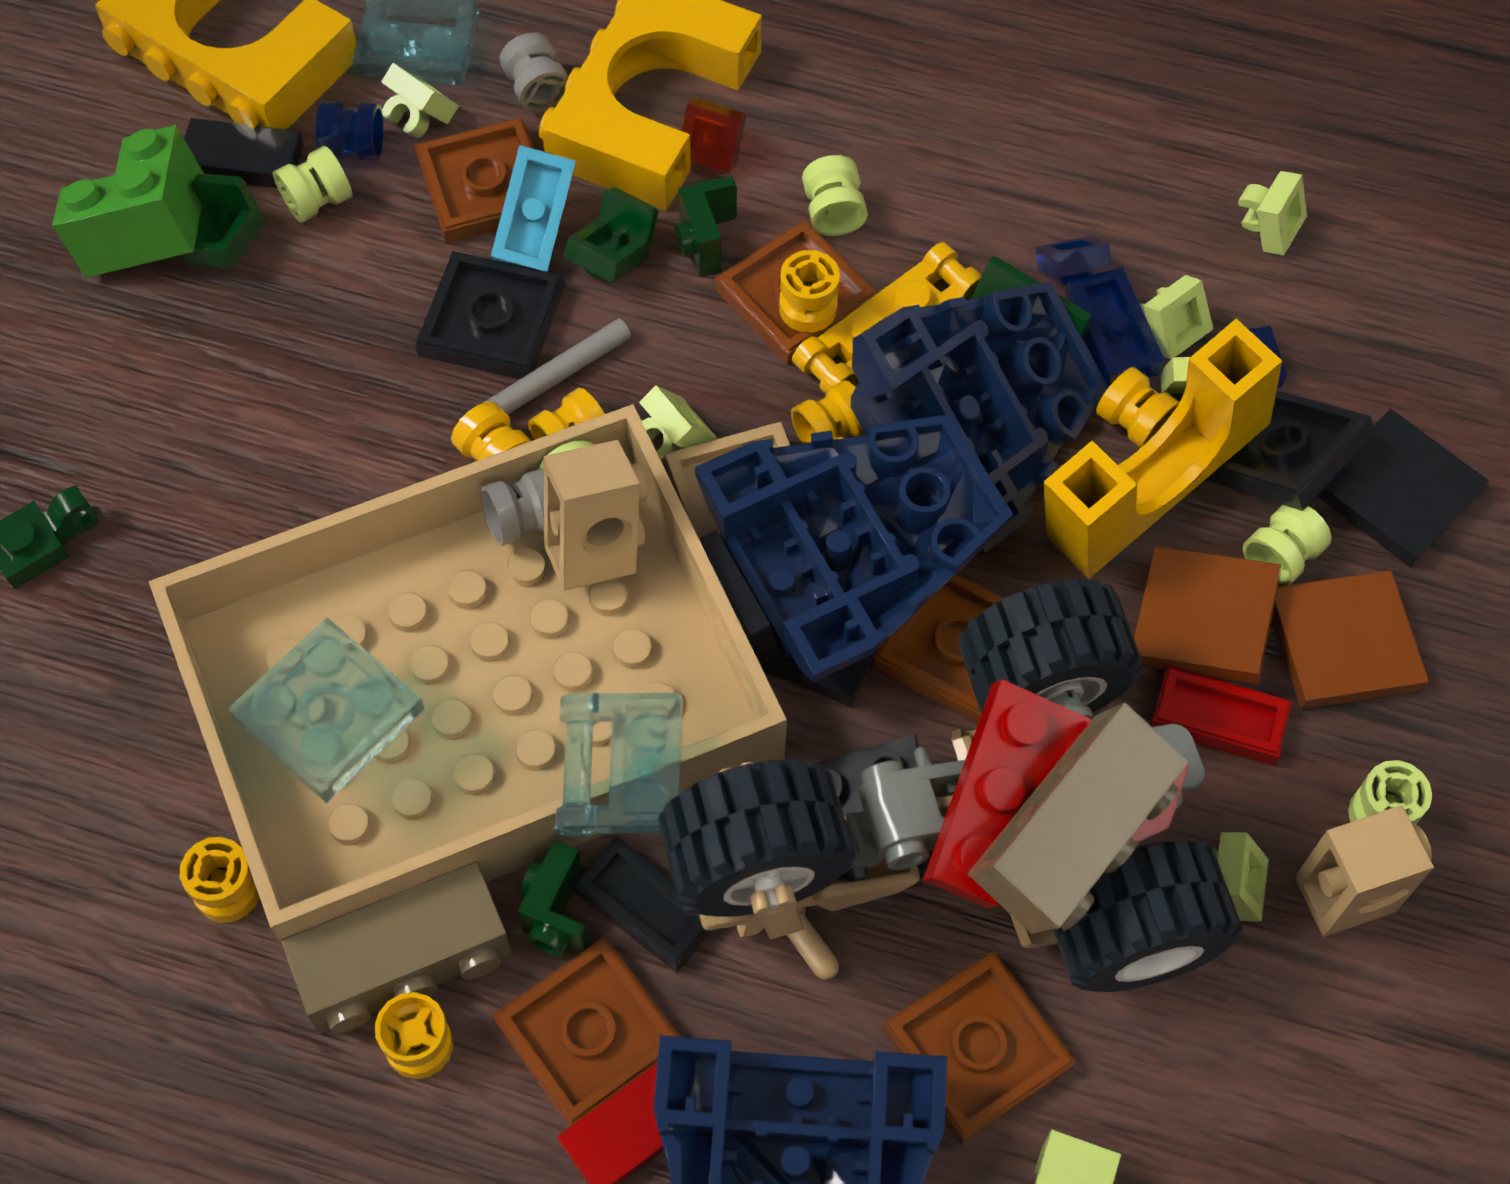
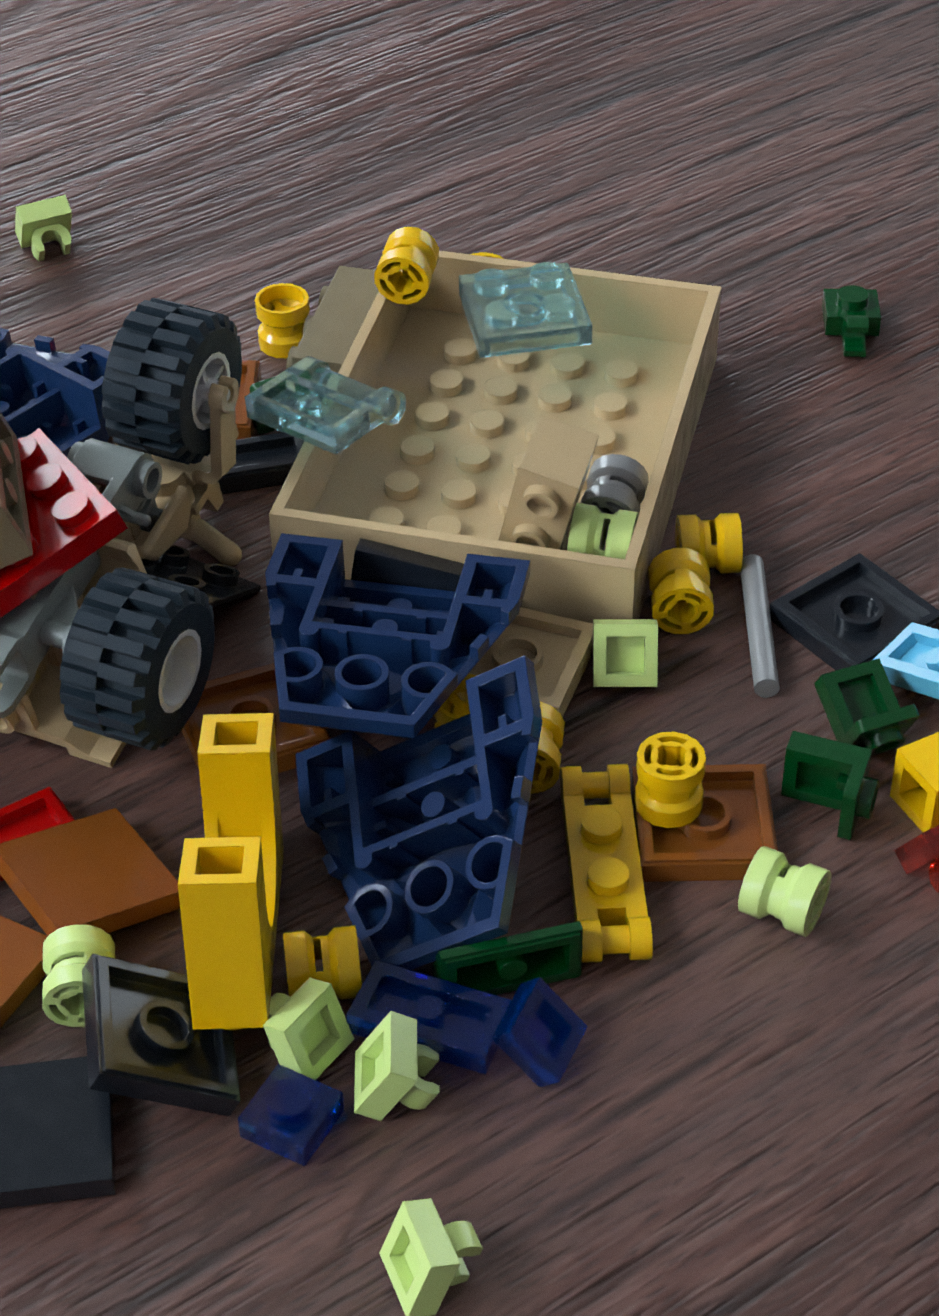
camera: 130 degrees right, 20 degrees down
(360, 841) = (407, 265): none -> yellow wheel

